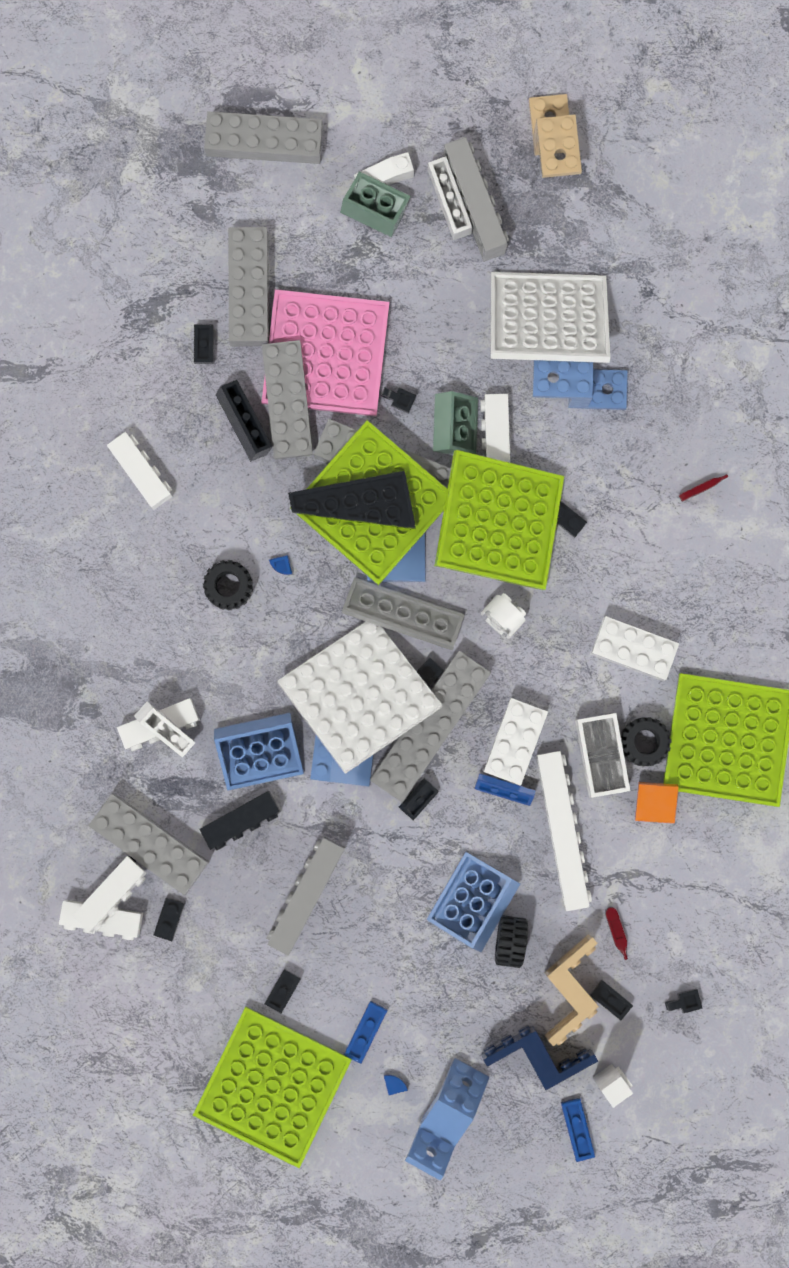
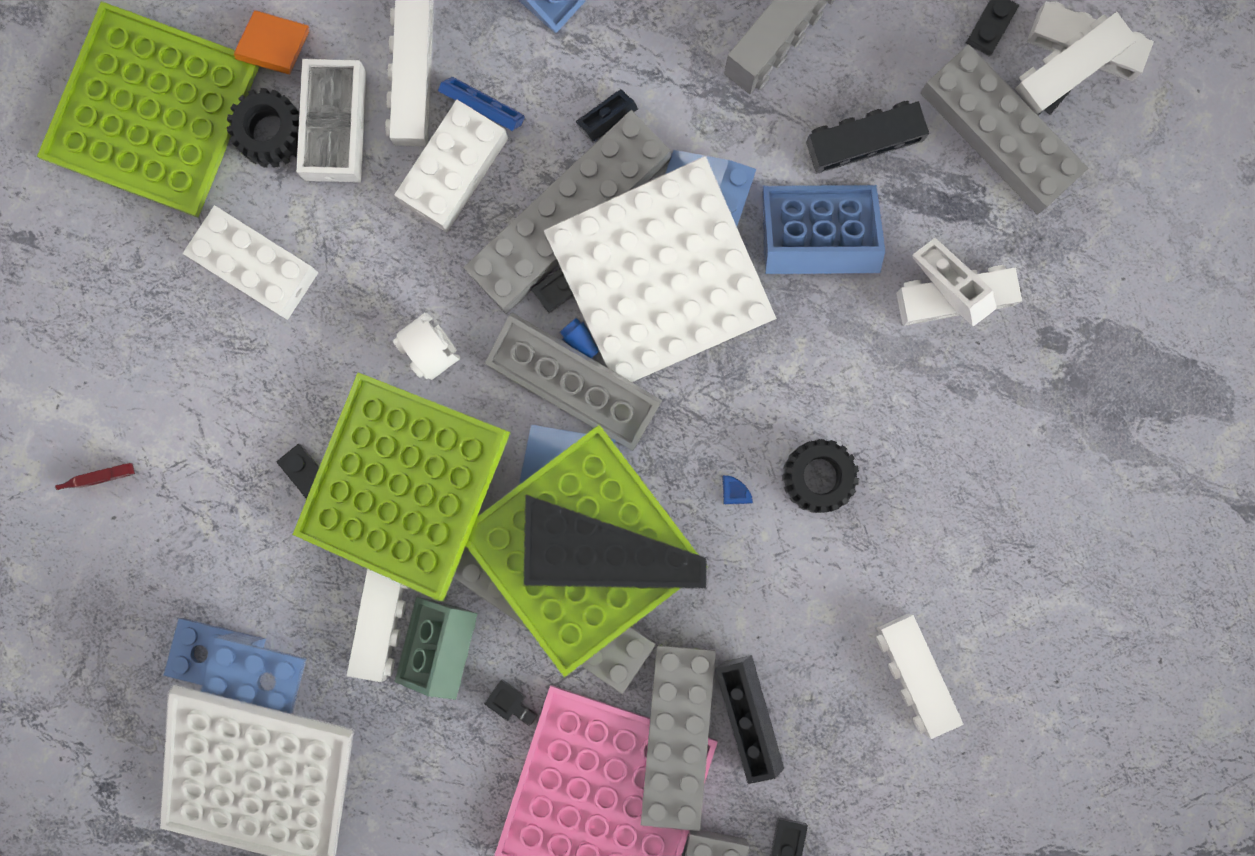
camera: 165 degrees left, 0 degrees up
(405, 644) = (579, 338): none -> blue cone

